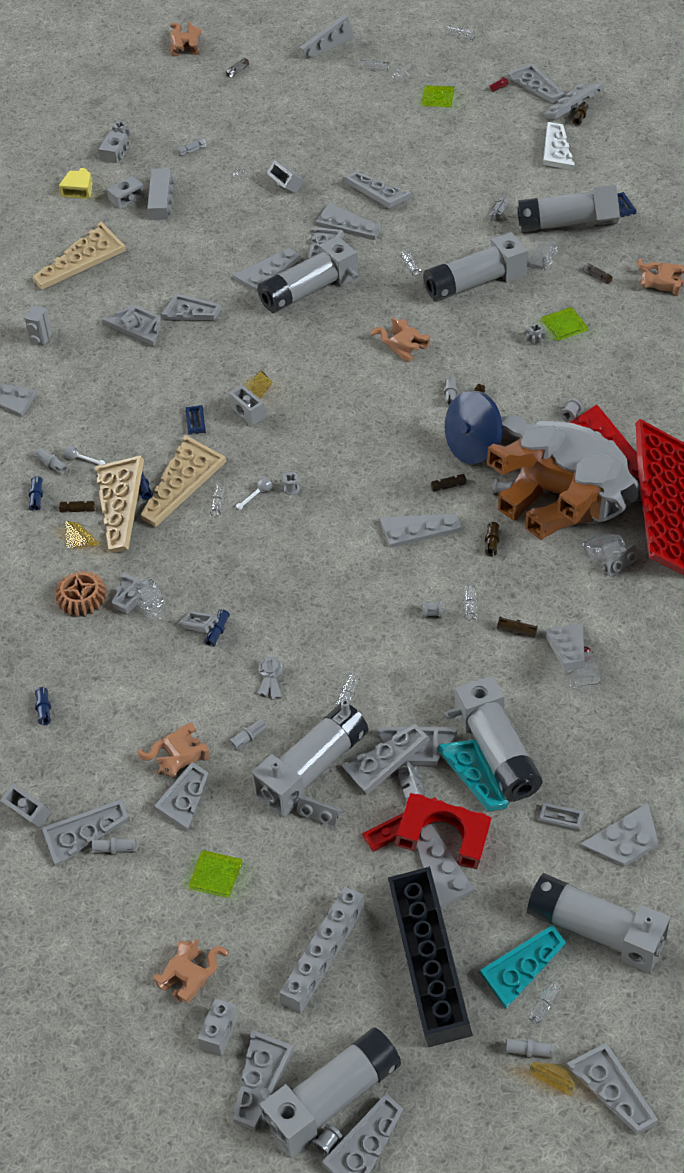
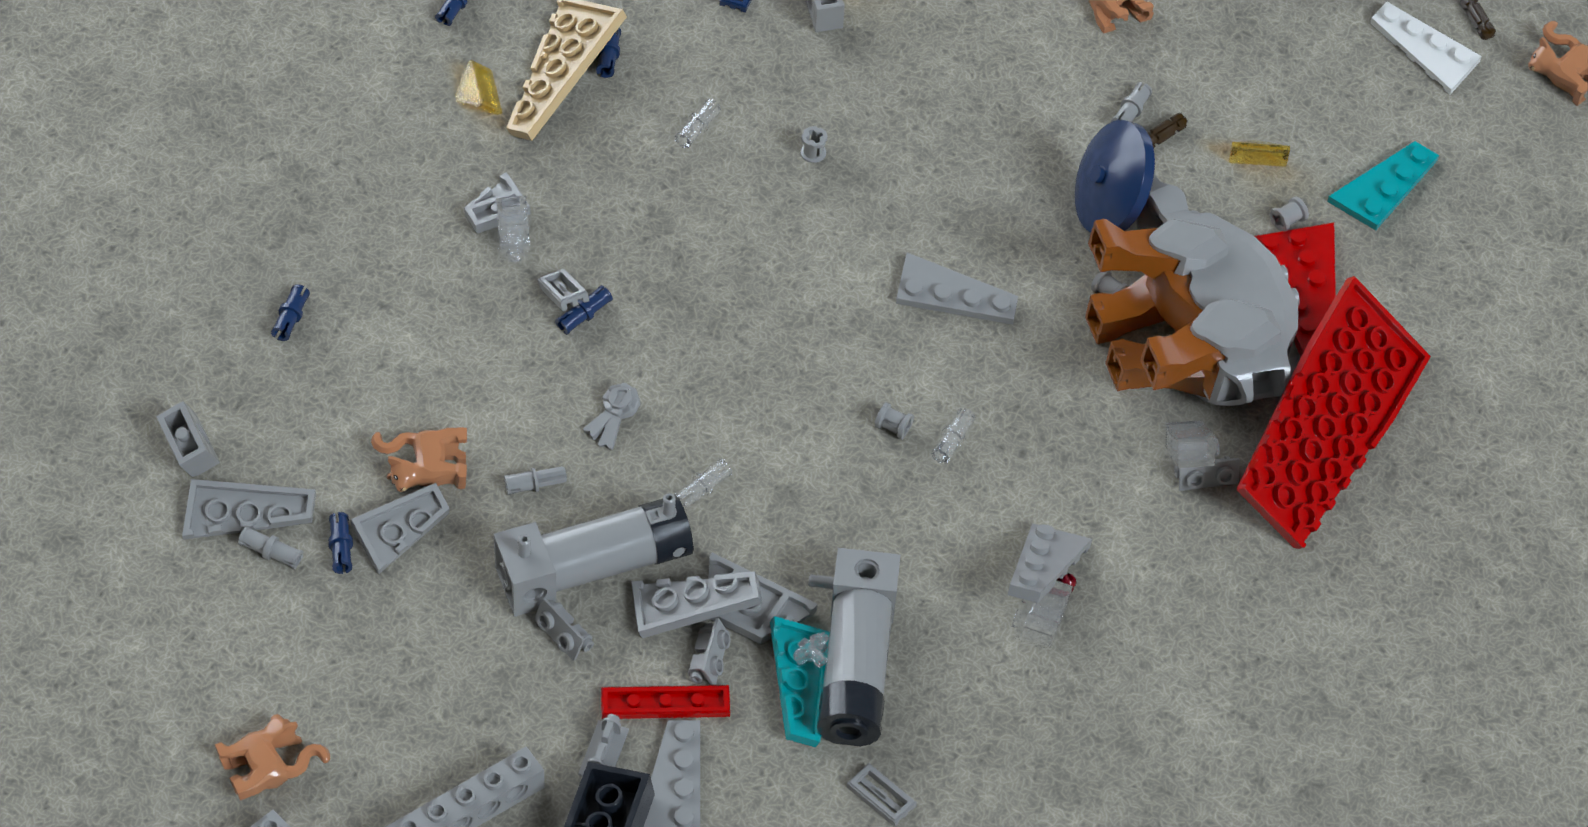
camera: 20 degrees right, 5 degrees up
(68, 593) = (431, 174): nougat gear -> none
(77, 506) = (501, 44): dark brown axle -> none
(154, 823) = (340, 543): none -> dark blue pin
(182, 477) = (674, 64): tan wing -> none
(215, 874) = (379, 648): clear neon green tile -> none
(264, 485) = (774, 131): hinge -> none
(385, 865) = (605, 743): none -> light grey hinge
(423, 811) = (693, 696): red arch -> none
(448, 482) = (1039, 244): dark brown axle -> none
(475, 752) = (812, 650): none -> clear plant
(492, 539) = (1045, 357): dark brown pin -> none
(517, 627) = (995, 501): dark brown pin -> none
(534, 386) = (1259, 153): none -> clear yellow slope
(535, 333) = (1315, 72): light grey gear -> none
(564, 323) = (1372, 74): clear neon green tile -> none
(593, 300) = (1433, 51): none -> white wing
(609, 375) = (1385, 186): none -> teal wing

